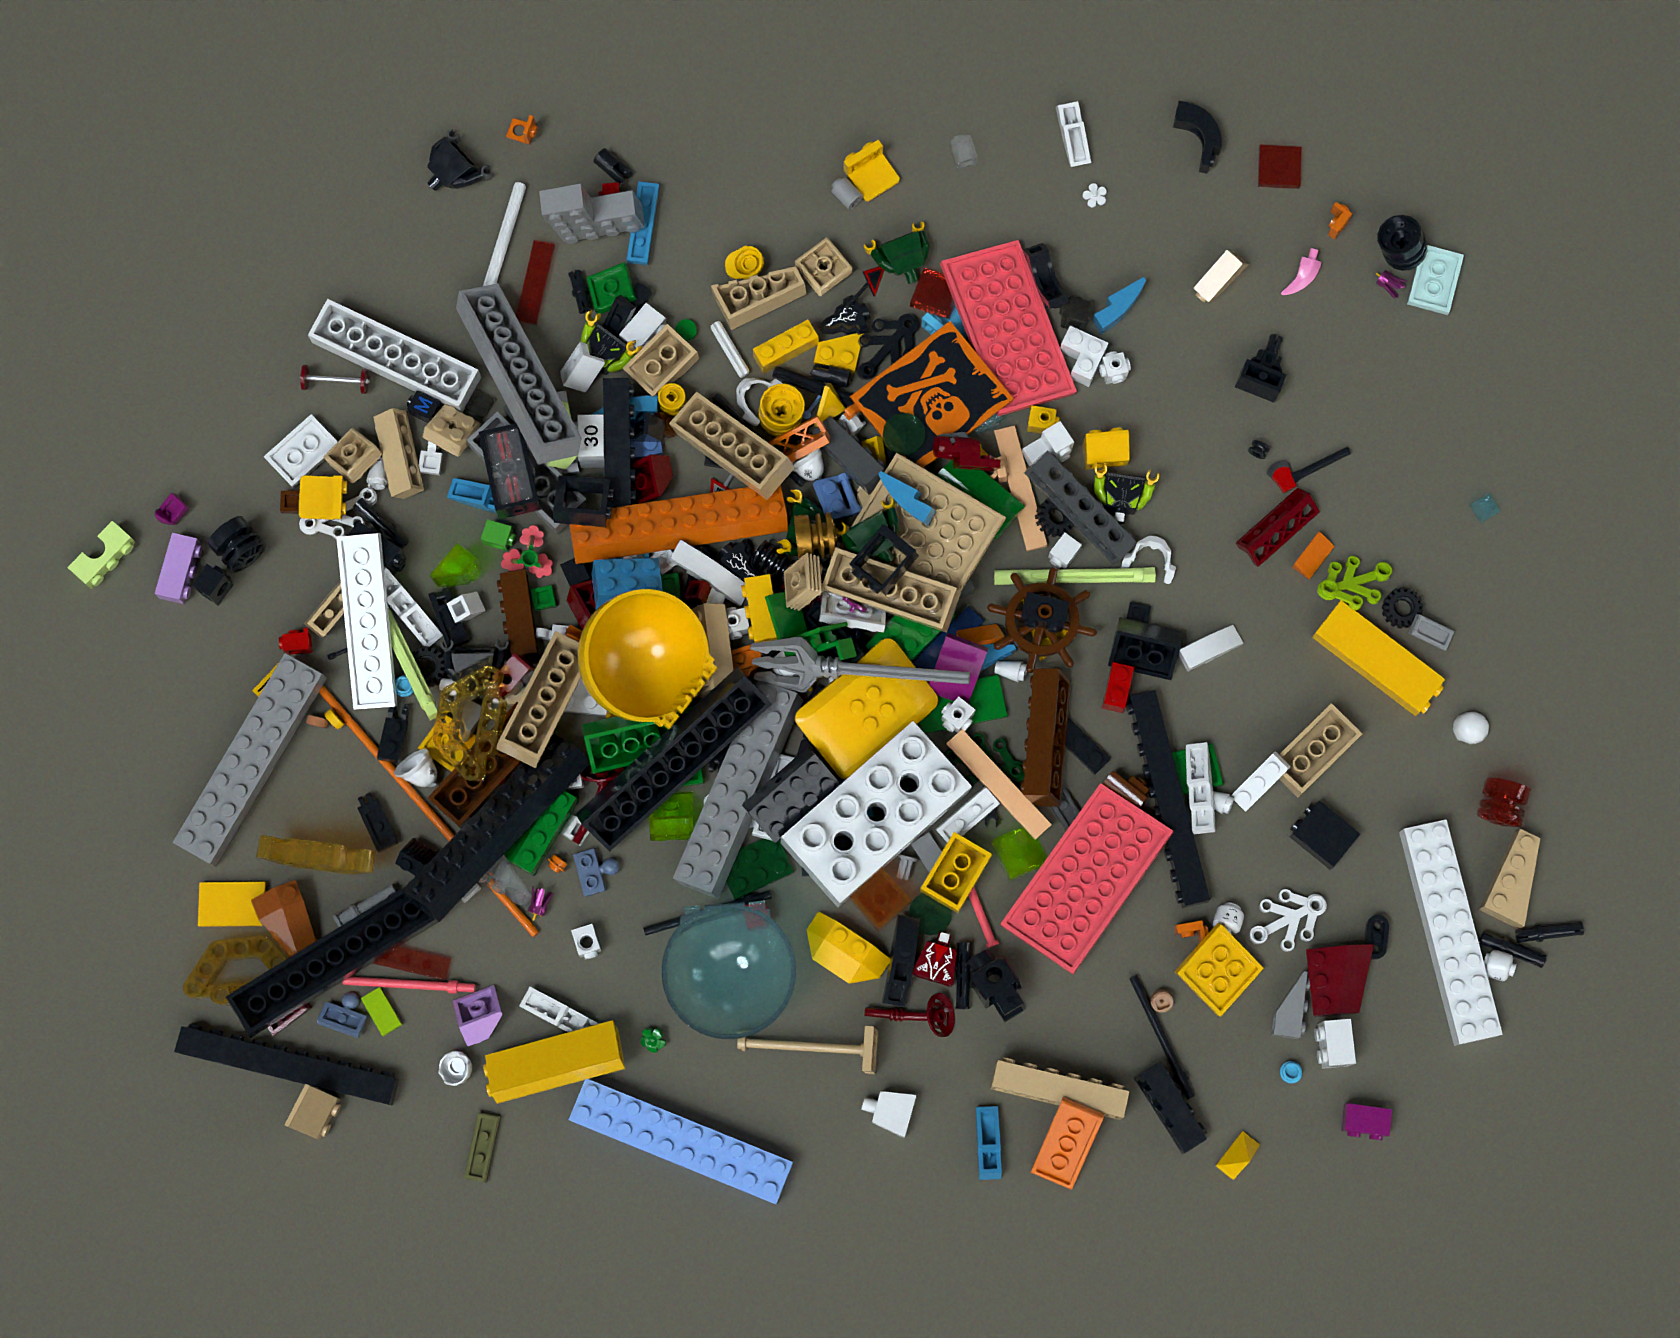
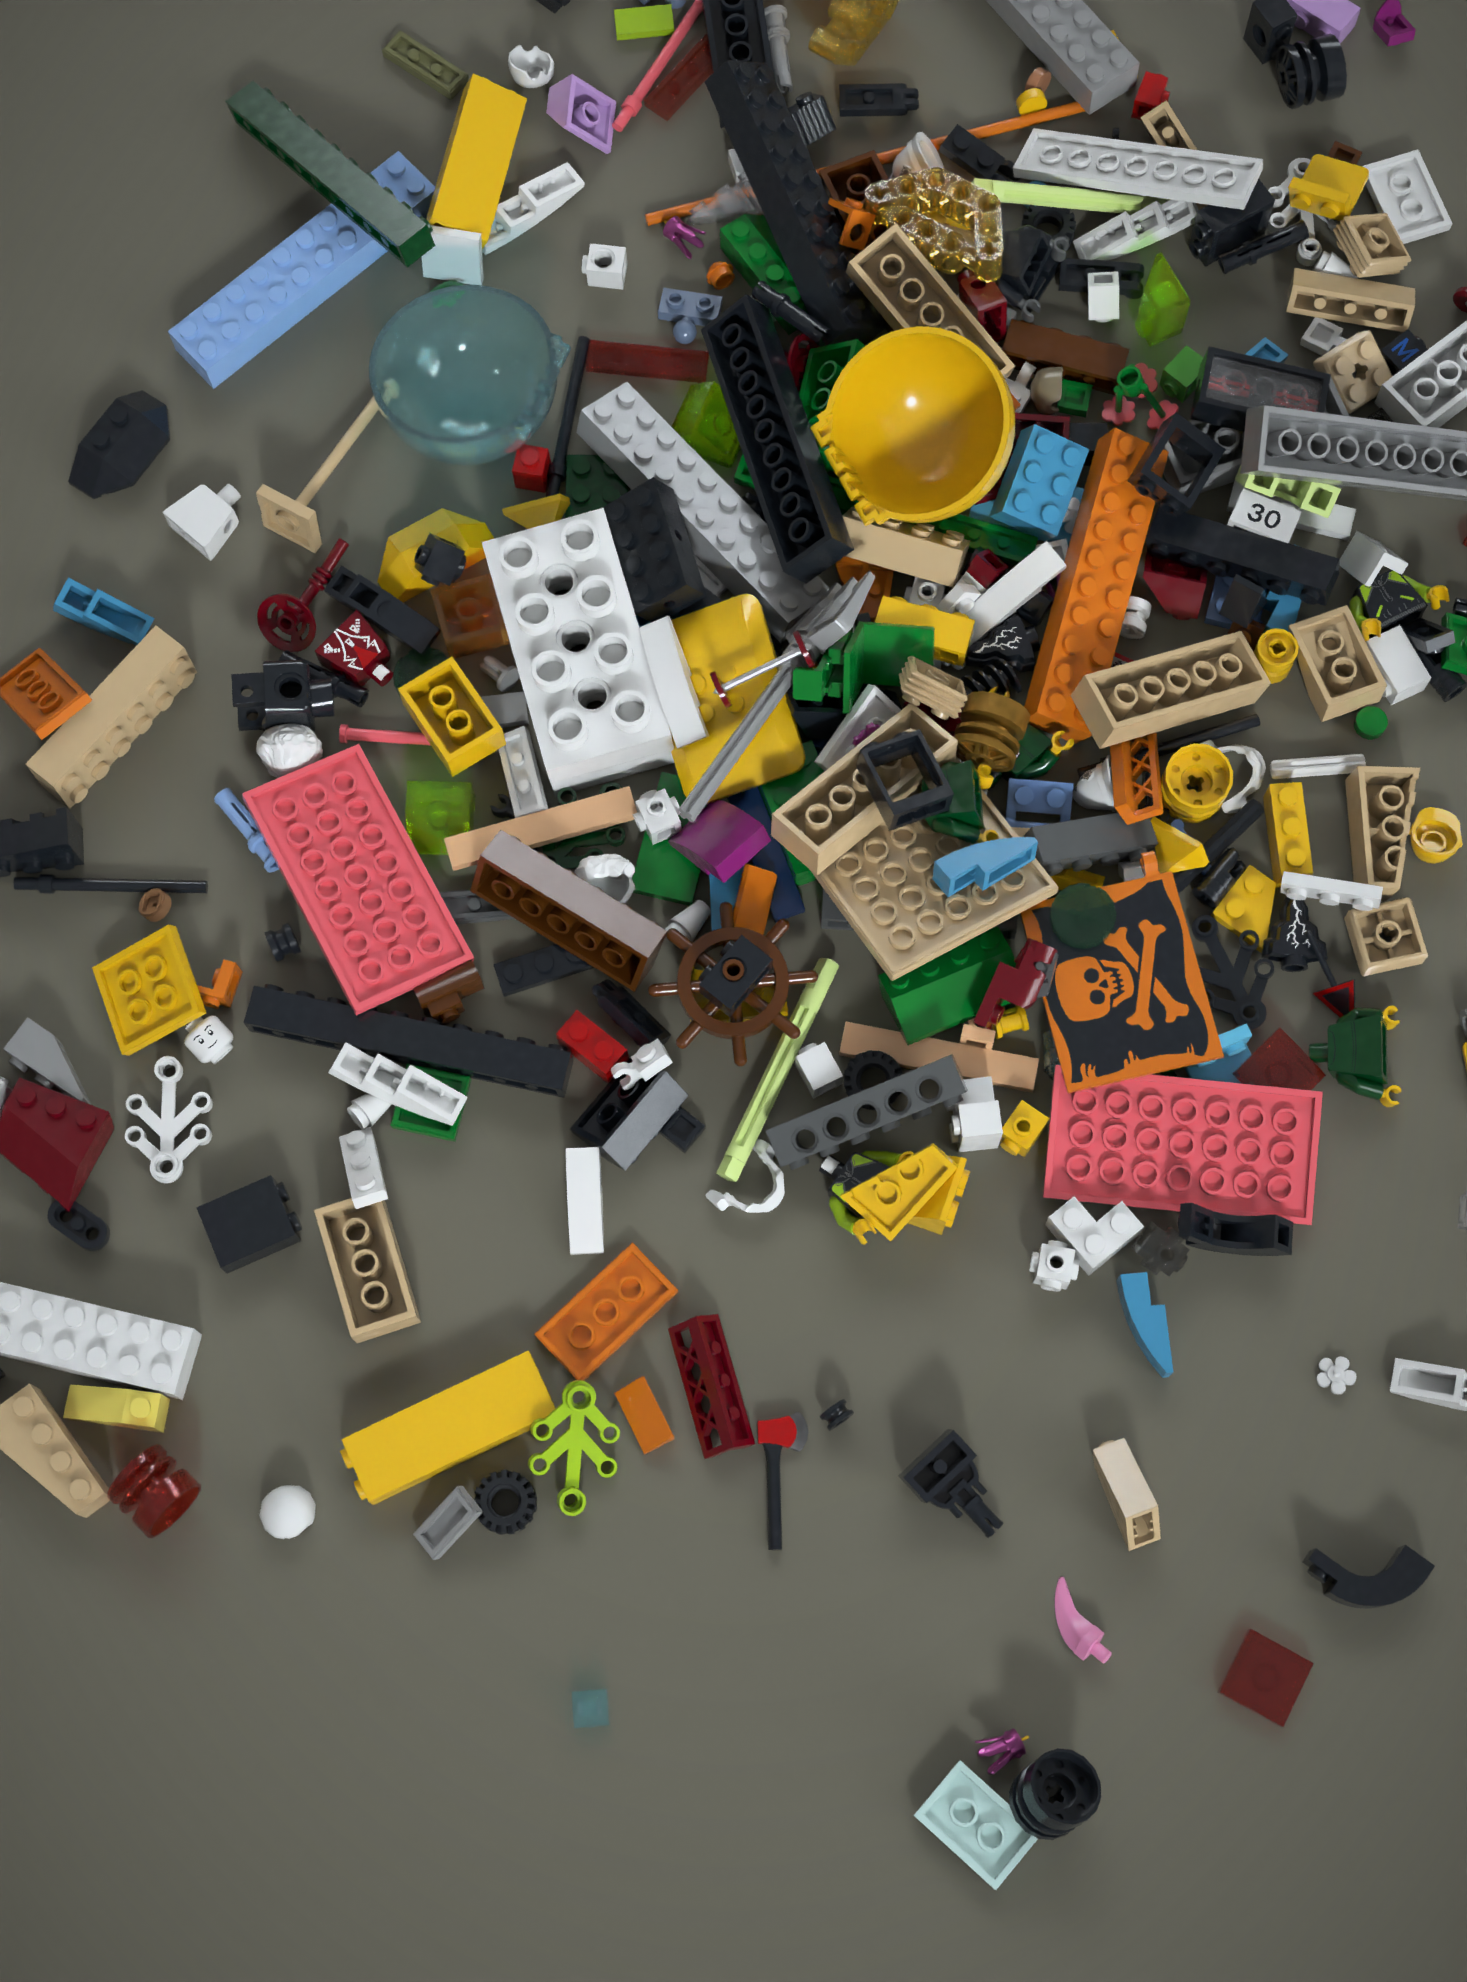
camera: 120 degrees right, 5 degrees down
(488, 781) = (856, 216): none -> orange bracket
(550, 612) = (1047, 389): none -> dark tan hair
(578, 792) = (781, 306): none -> black pin
(610, 1154) = (331, 173): none -> dark green brick
(629, 1043) = (454, 256): none -> white tile
(641, 882) = (647, 361): none -> clear red tile
(688, 490) = (1134, 620): none -> white wheel
(729, 597) = (959, 599): none -> white plate
(787, 895) = (538, 511): none -> yellow slope
(816, 303) = (1331, 891): none -> white plate
(858, 930) = (439, 560): none -> black brick
(865, 1194) = (121, 445): none -> black wedge
(872, 699) = (721, 689): none -> axle
(877, 736) = (673, 682): none -> white slope
(1012, 728) = (609, 873): none -> white hair
(1026, 965) = (288, 748): none -> white hair
(1082, 972) = (244, 822): none -> light blue pin
(1086, 675) = (629, 1013): none -> black hinge
(1115, 646) = (646, 1063): none -> white plate
(1120, 463) = (901, 1190): none -> yellow wing
(1146, 907) = (282, 942): none -> black wheel
(1266, 606) = (606, 1313): none -> orange tile
(1341, 219) = (1132, 1719): orange bracket -> none
(1468, 856) = (117, 1407): none -> light yellow slope

